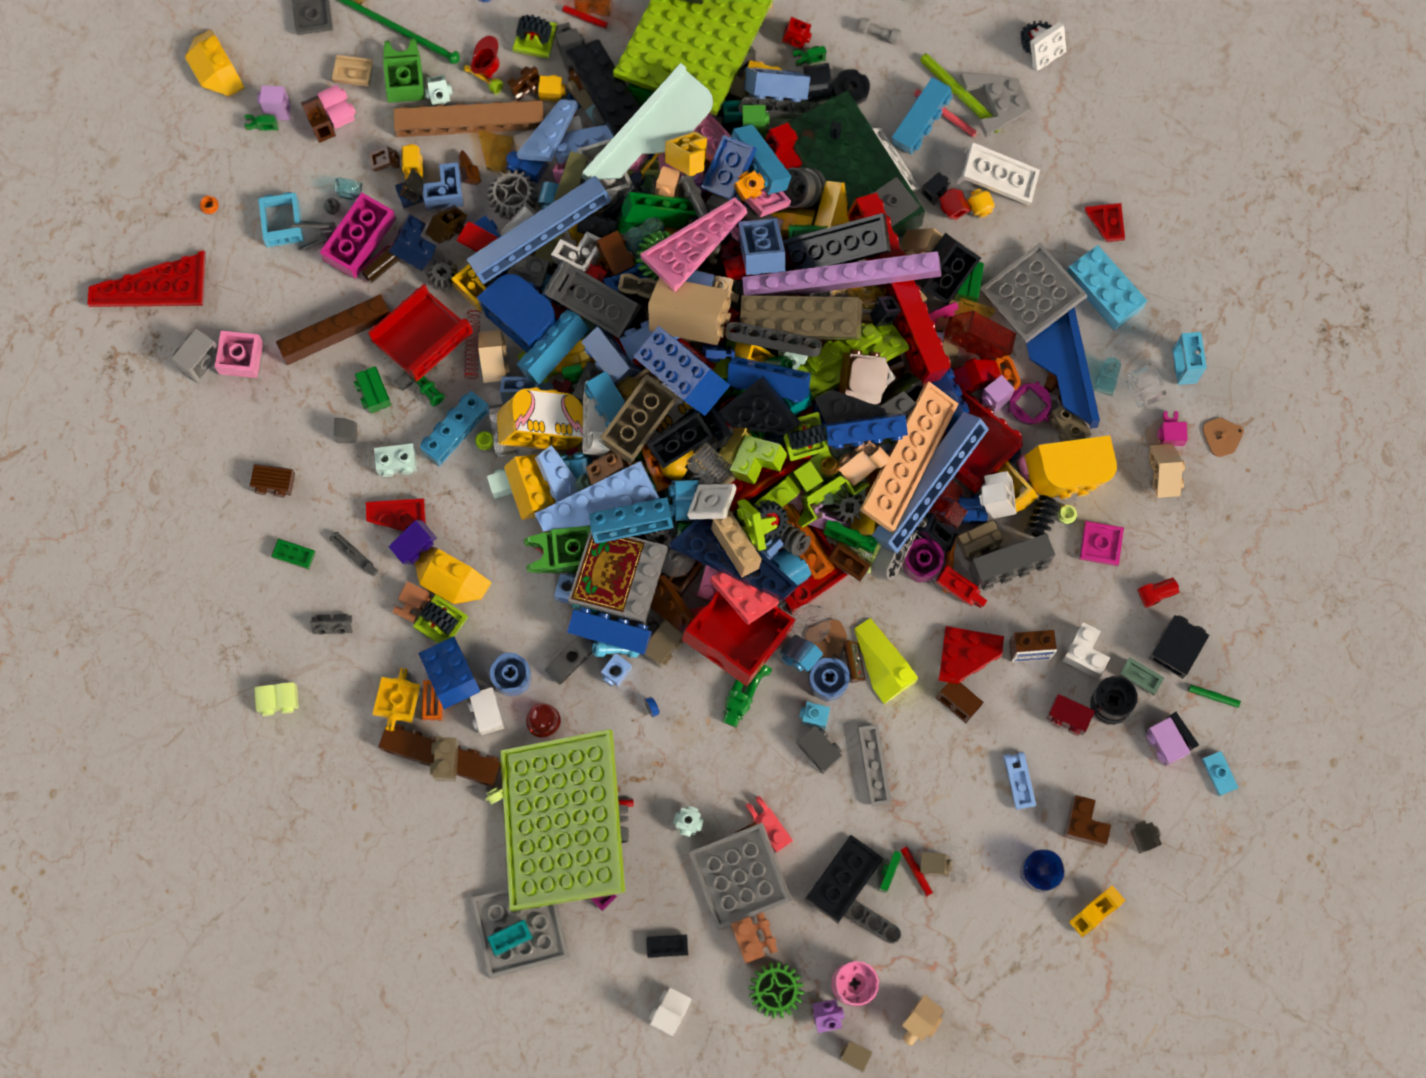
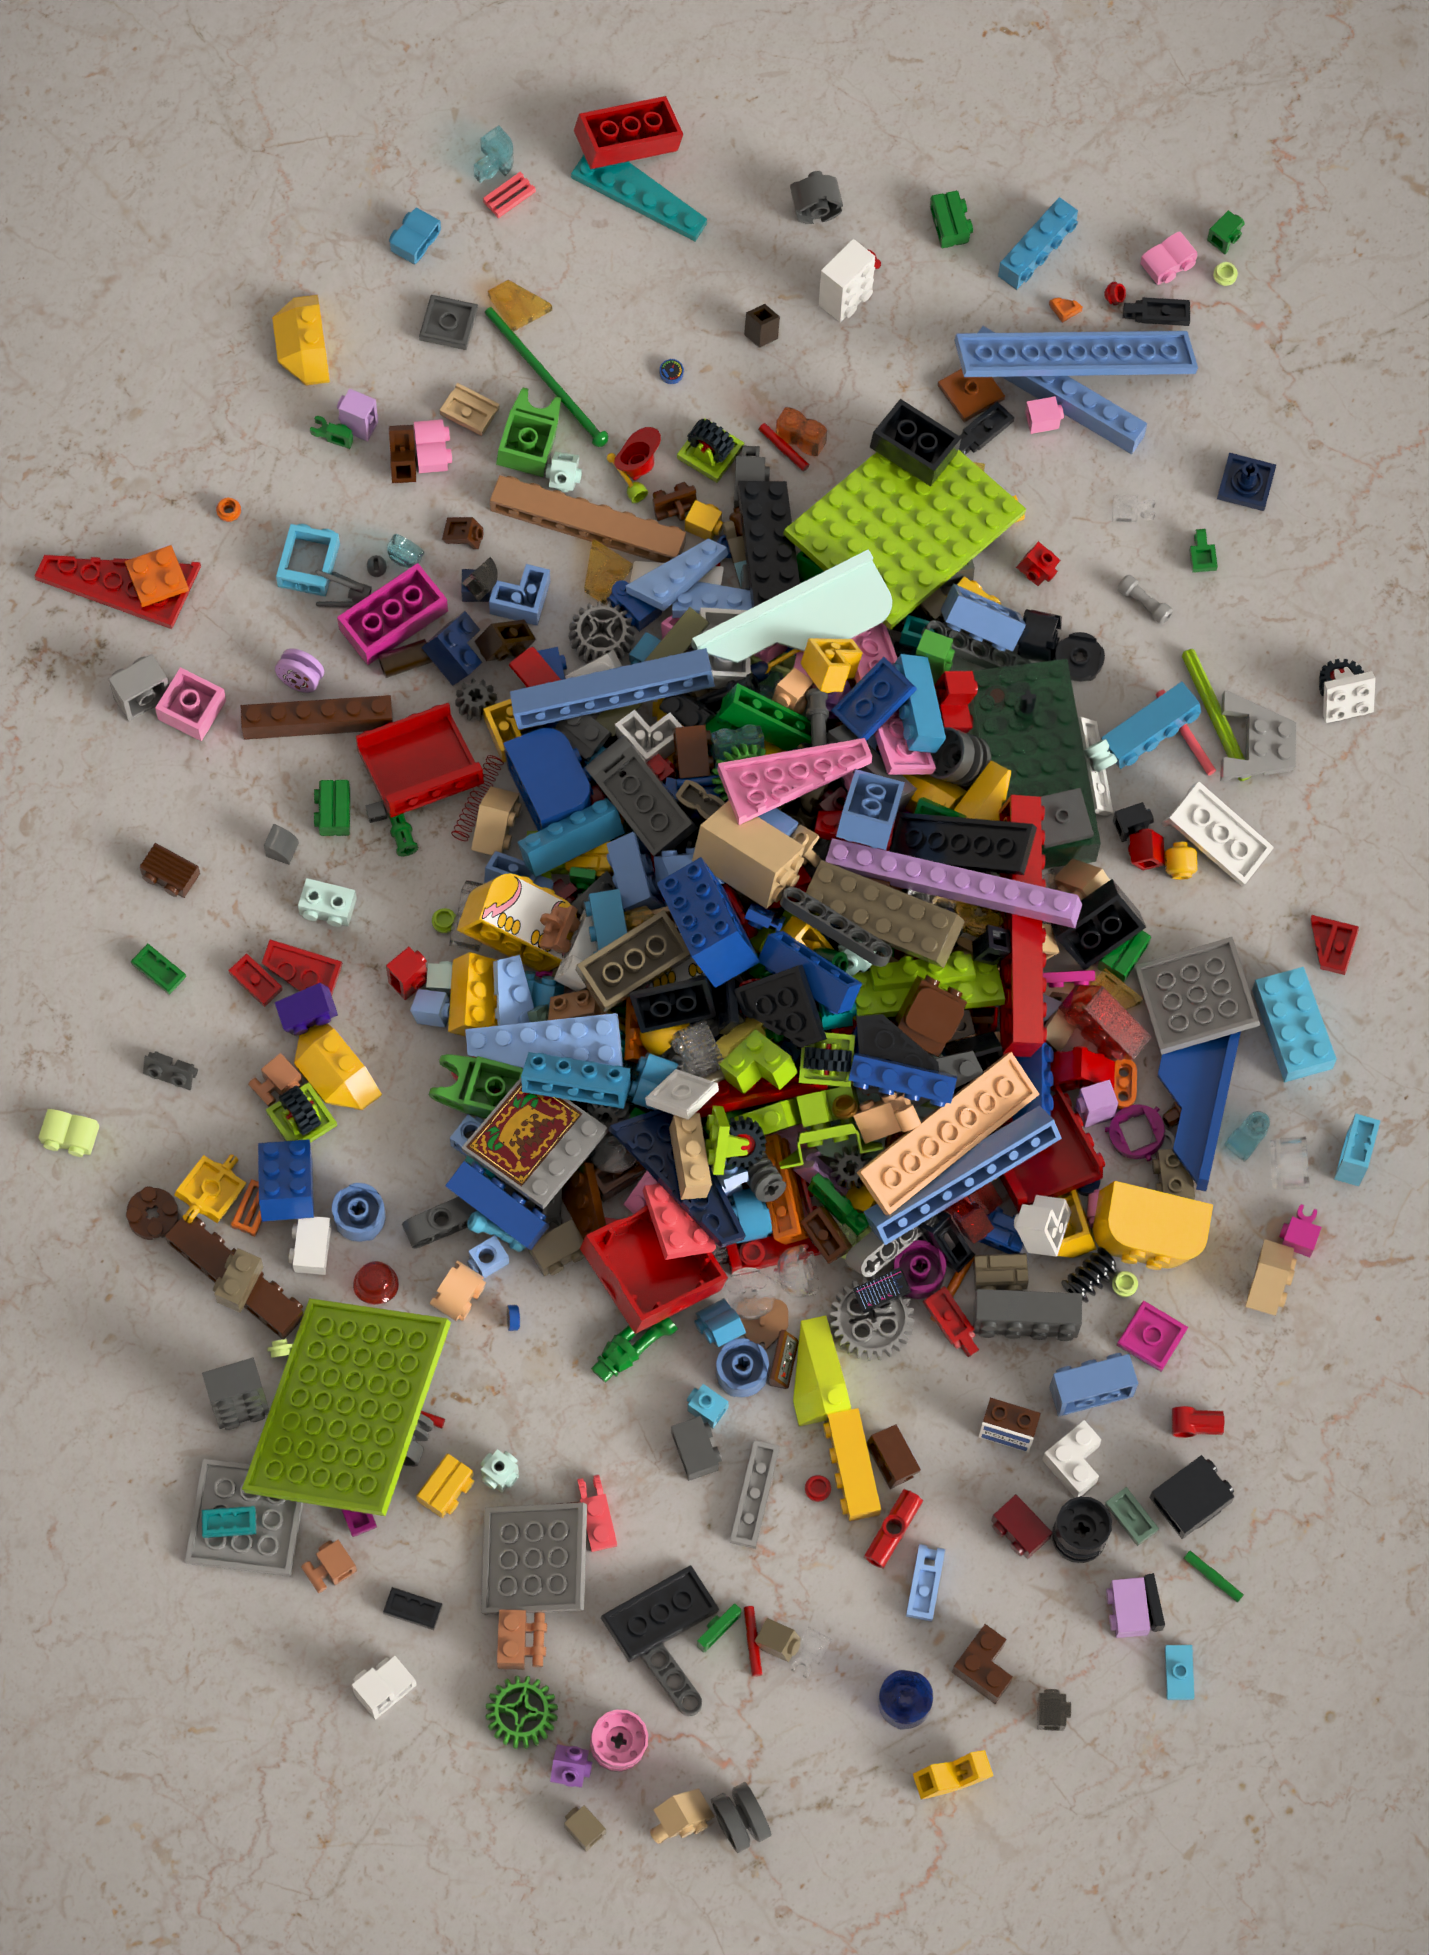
camera: 20 degrees right, 5 degrees down
(176, 271) = (156, 576): none -> orange plate
(307, 300) = (299, 670): none -> lavender head
(353, 553) = (230, 995): dark grey piece -> none
(354, 724) = (148, 1199): none -> reddish brown plate
(367, 535) = (255, 980): none -> red plate
(411, 160) = (495, 545): yellow brick -> none
(454, 428) = (414, 891): dark azure brick -> none
(469, 172) = (560, 585): reddish brown plate -> none
(474, 488) = (407, 972): none -> red brick
(478, 844) = (236, 1394): none -> dark grey brick
(502, 507) = (431, 1008): none -> light blue brick
(571, 414) = (557, 926): none -> nougat hips
(598, 936) = (334, 1563): none -> nougat brick
(605, 704) = (457, 1291): none -> light nougat brick
(654, 847) = (445, 1486): none -> yellow brick
(744, 190) = (879, 734): light orange brick -> none
(813, 55) = (1048, 599): green plate -> none
(838, 595) = (796, 1271): none -> clear cylinder
(897, 150) = (1099, 755): none -> light aqua wheel
(905, 585) = (882, 1290): none -> black tile
(914, 621) = (877, 1340): none -> light grey gear
(916, 743) = (817, 1488): none -> red plate
(934, 717) = (853, 1465): none -> yellow brick
(965, 1004) = (743, 1816): none -> dark grey wheel
(967, 653) = (926, 1403): red plate -> none
(979, 763) = (885, 1542): none -> red piece
(1077, 593) = (1093, 1384): none -> medium blue brick
(1226, 432) = (1371, 1261): medium nougat piece -> none

